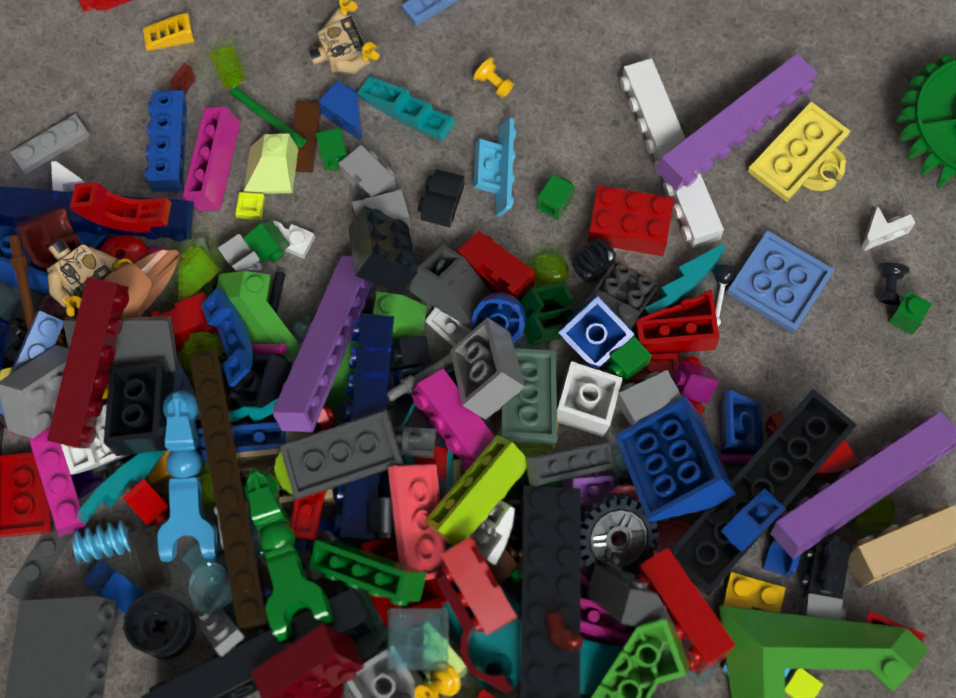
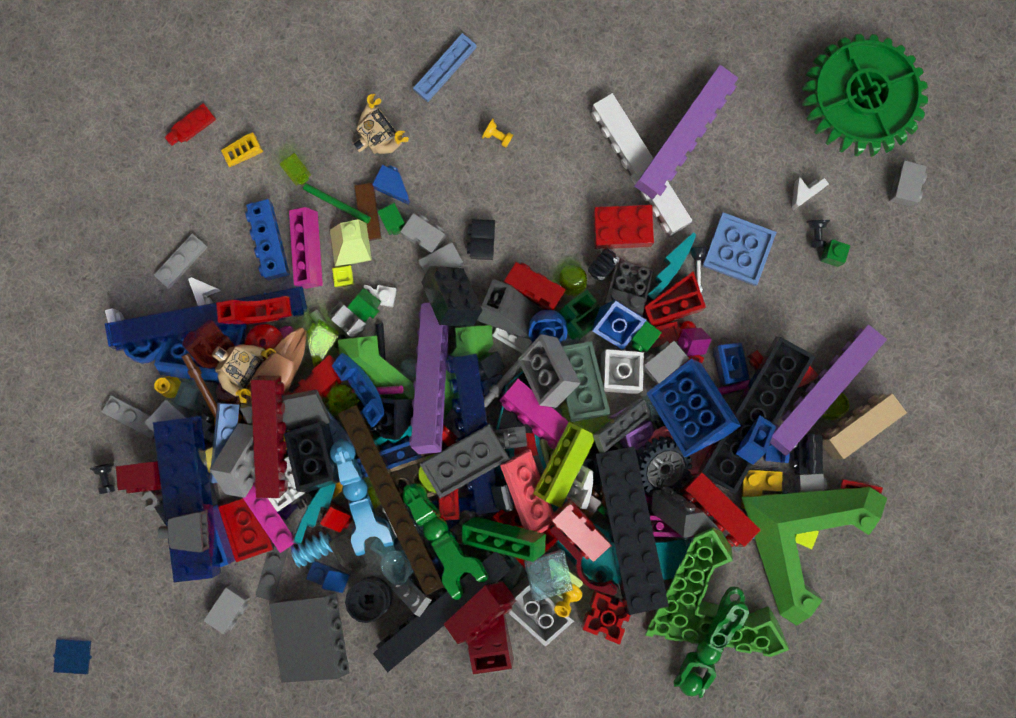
camera: 10 degrees left, 15 degrees up
(183, 79) = (265, 188): clear red tile -> none
(405, 108) = (437, 172): teal slope -> none
(494, 166) = (515, 206): medium azure bracket -> none
(555, 196) = (565, 219): green brick -> none
(562, 637) = (645, 554): clear red arm -> none
(803, 154) = (737, 144): light yellow plate -> none

